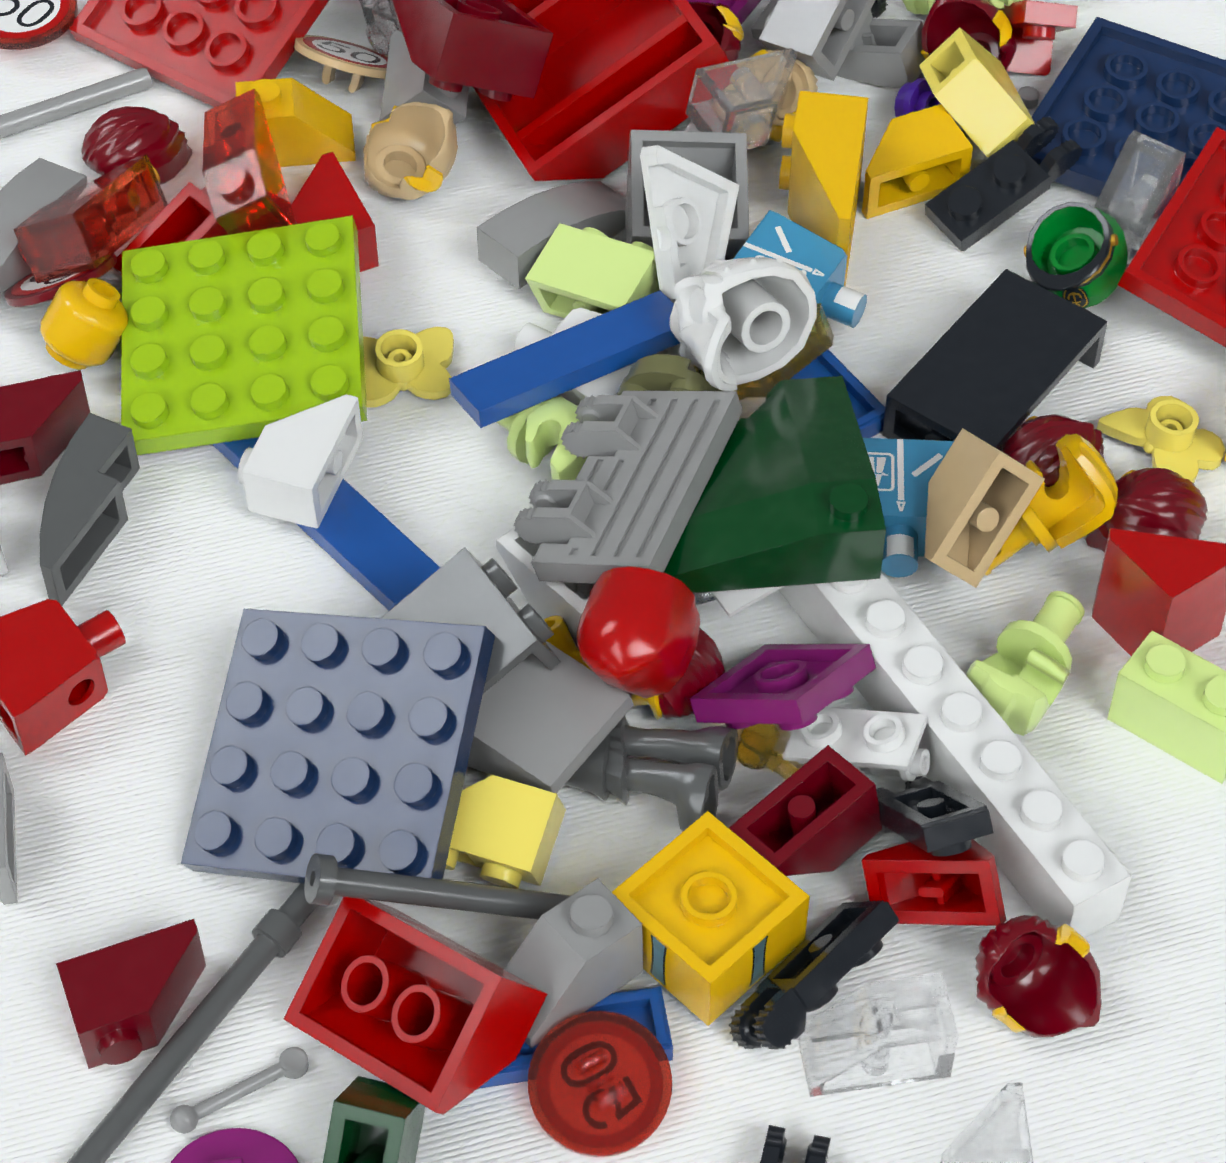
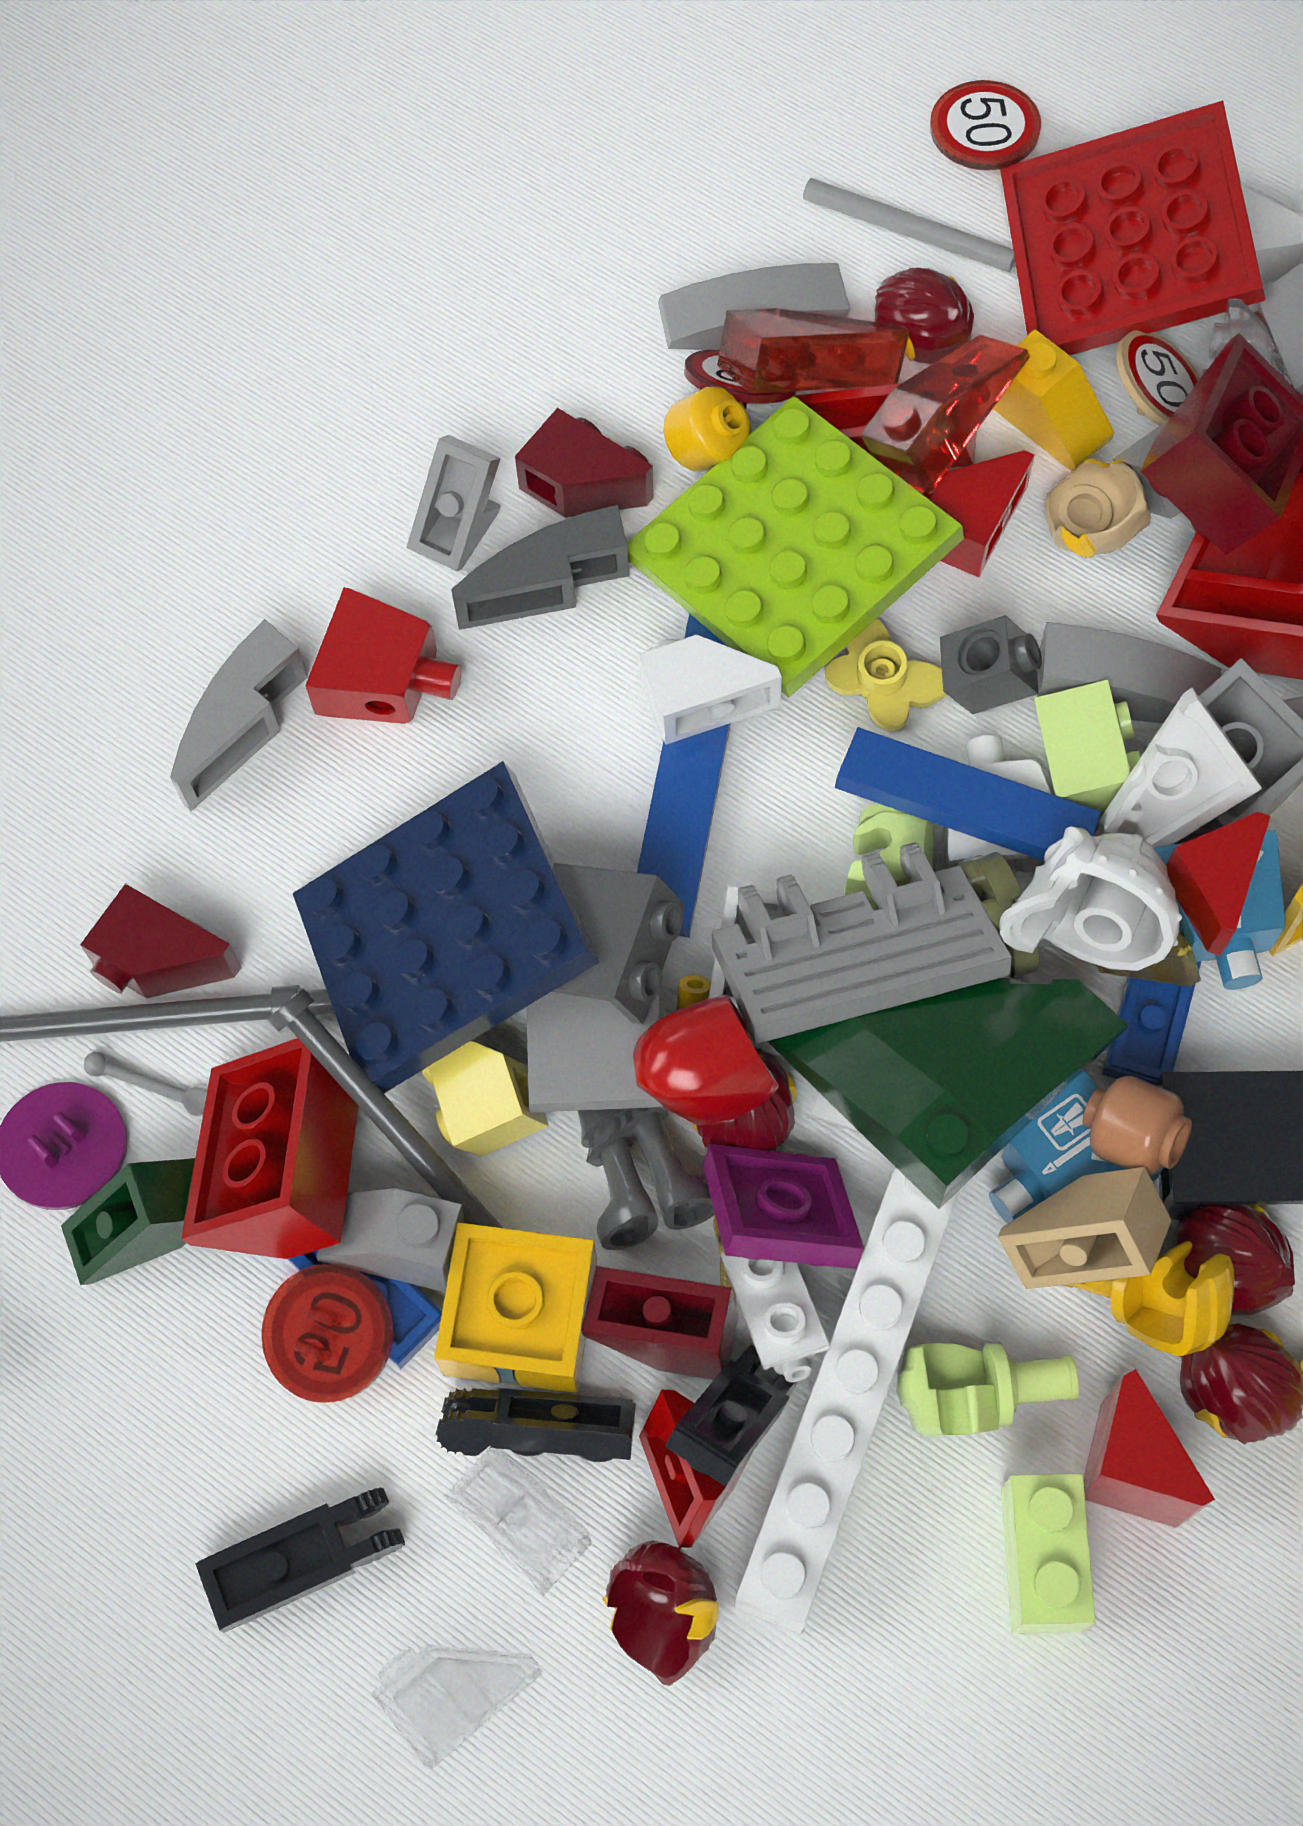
camera: 55 degrees right, 15 degrees up
(446, 287) = (989, 664): none -> dark grey brick
(786, 234) = (1214, 877): none -> red slope
(921, 421) = (1137, 1125): none -> nougat head

